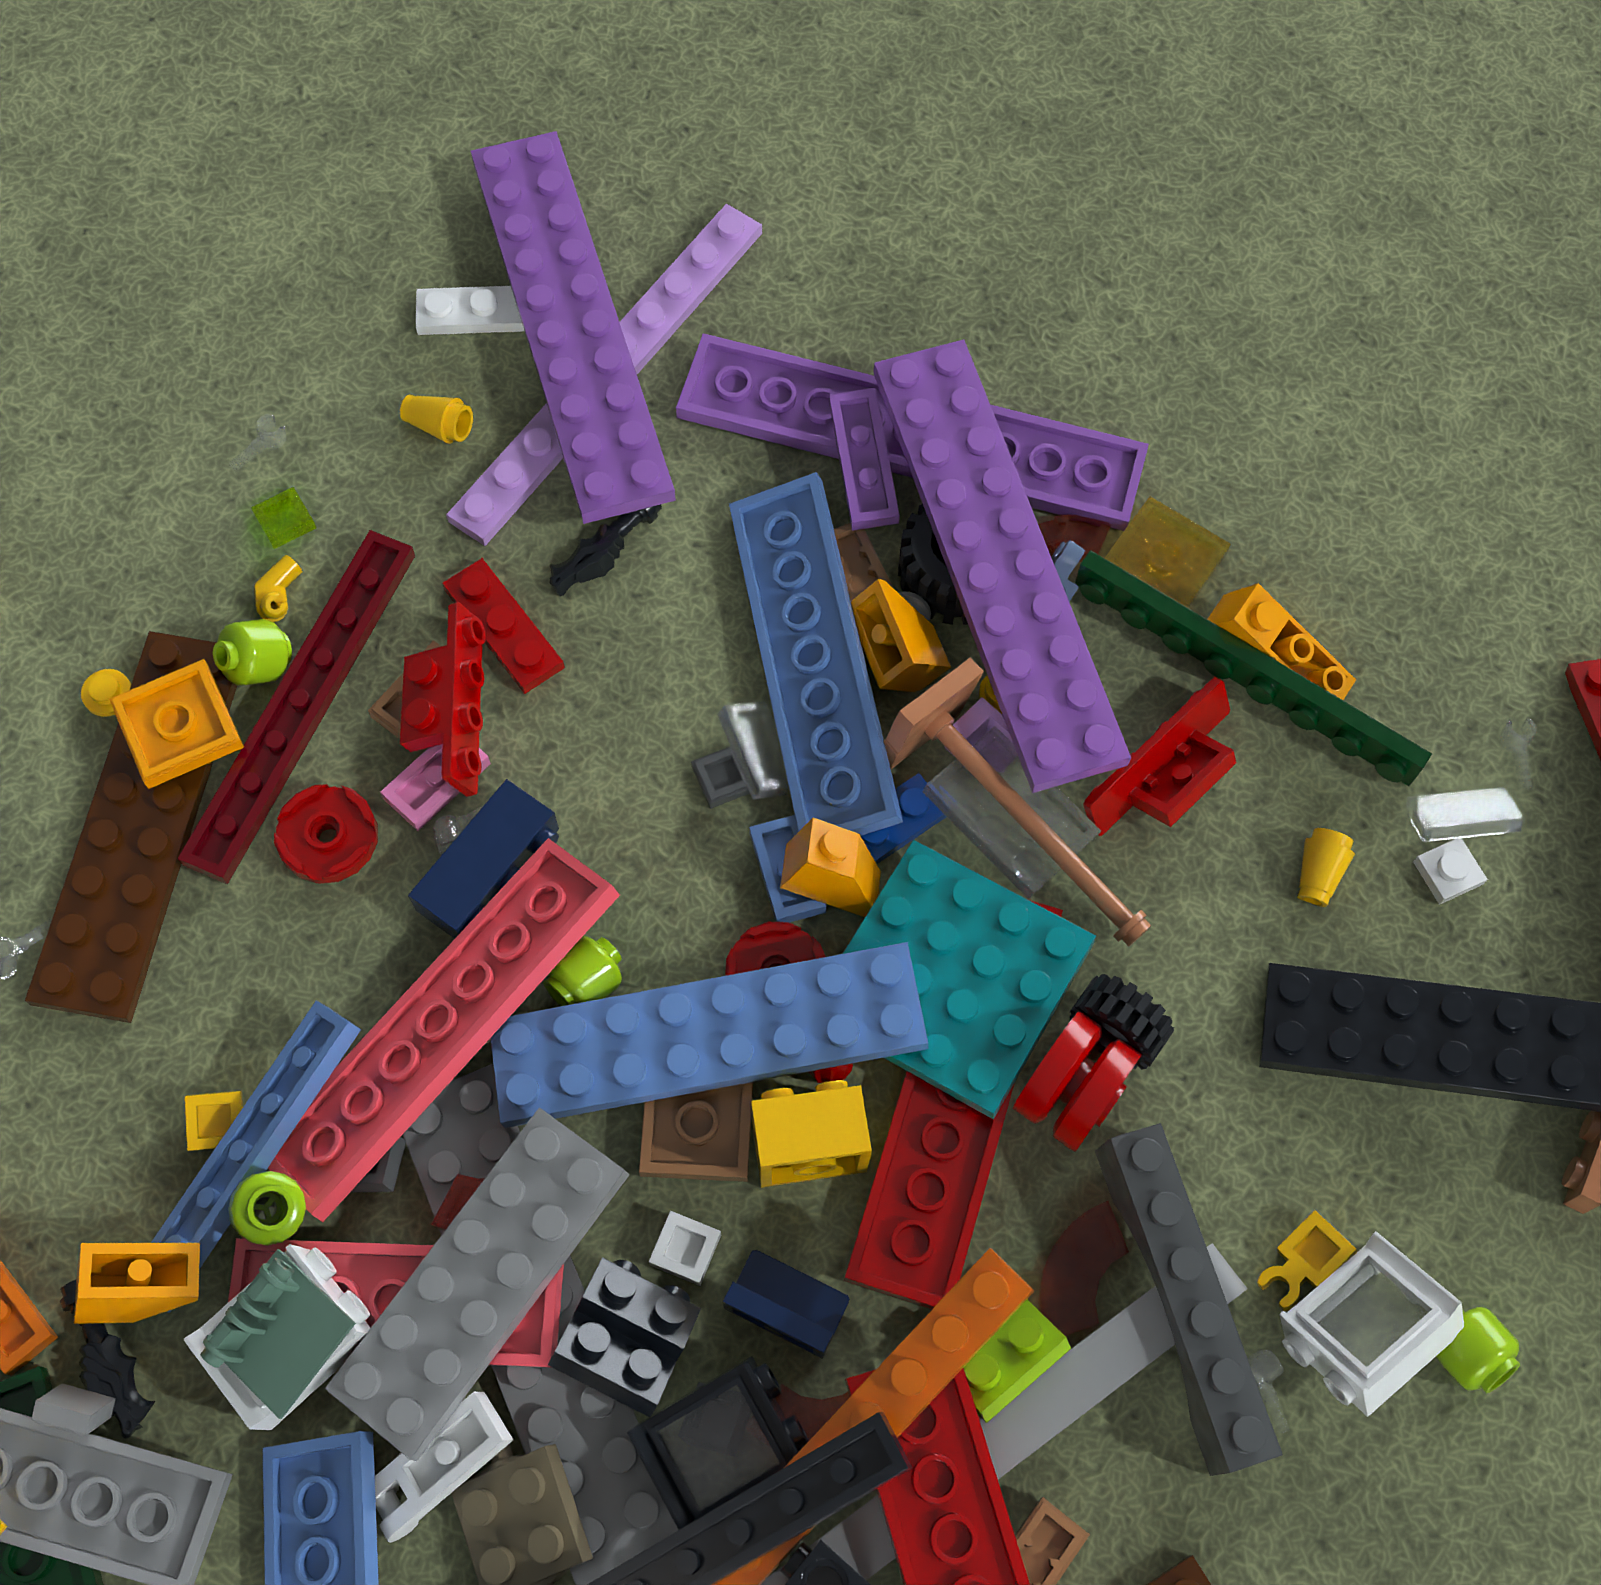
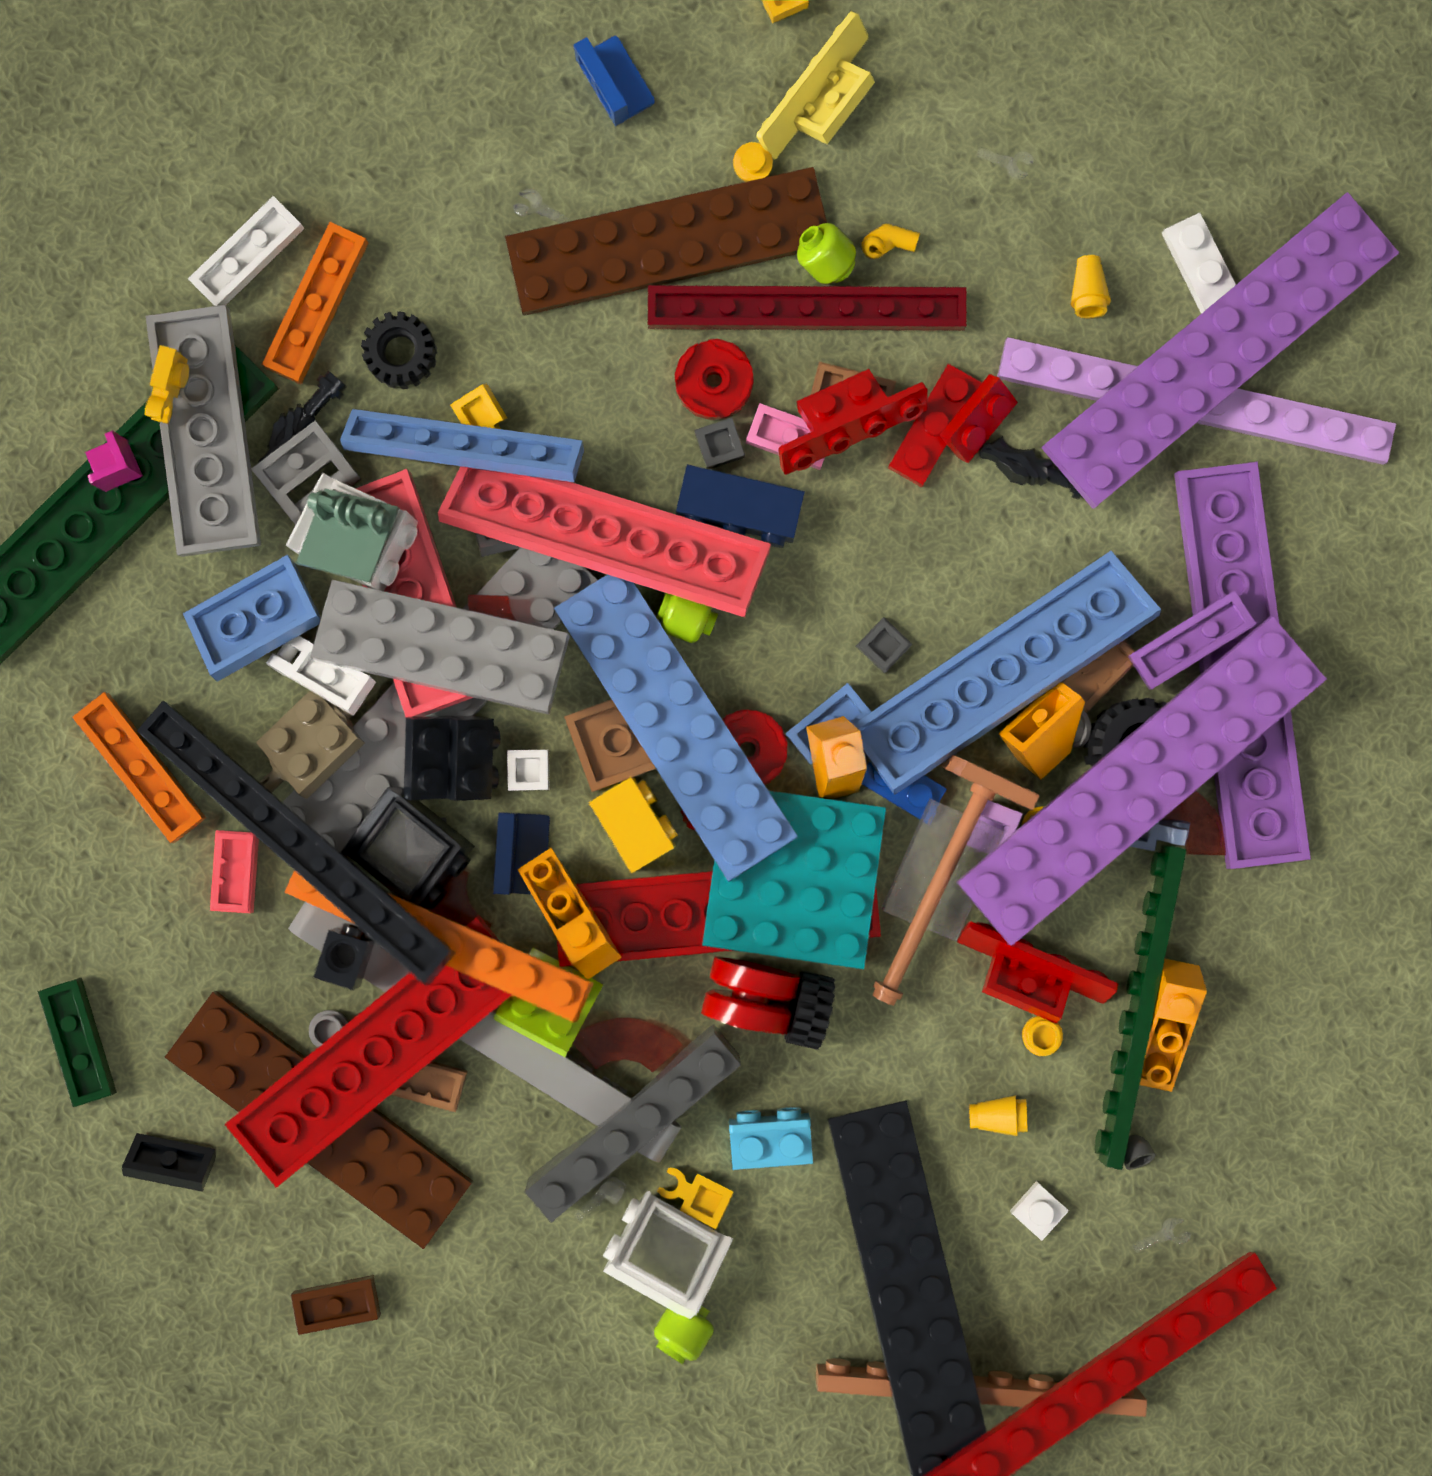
camera: 70 degrees right, 20 degrees up
(58, 1174) = (383, 333): none -> black tyre
(73, 1409) = (255, 424): light grey tile -> none
(76, 587) = (823, 93): none -> light yellow bracket
(134, 1280) = (348, 420): light orange slope -> none
(153, 1383) = (297, 462): none -> light grey plate
(176, 723) = (744, 230): light orange plate -> none
(283, 517) = (952, 214): clear neon green tile -> none
(288, 1211) = (420, 490): lime head -> none
(402, 856) = (719, 443): none -> dark grey plate
(449, 827) = (754, 465): clear hand -> none
(519, 575) = (978, 418): none -> red plate
(756, 748) = (914, 659): clear tile -> none
(888, 1263) = (569, 914): none -> light orange slope
(1168, 551) = (1215, 908): clear yellow plate -> none
(1245, 786) = (1042, 1036): none -> yellow plate
(1263, 1143) = (770, 1139): none -> medium azure bracket
(1417, 732) = (1138, 1152): none -> dark grey hinge
(1464, 814) = (1088, 1208): clear tile -> none

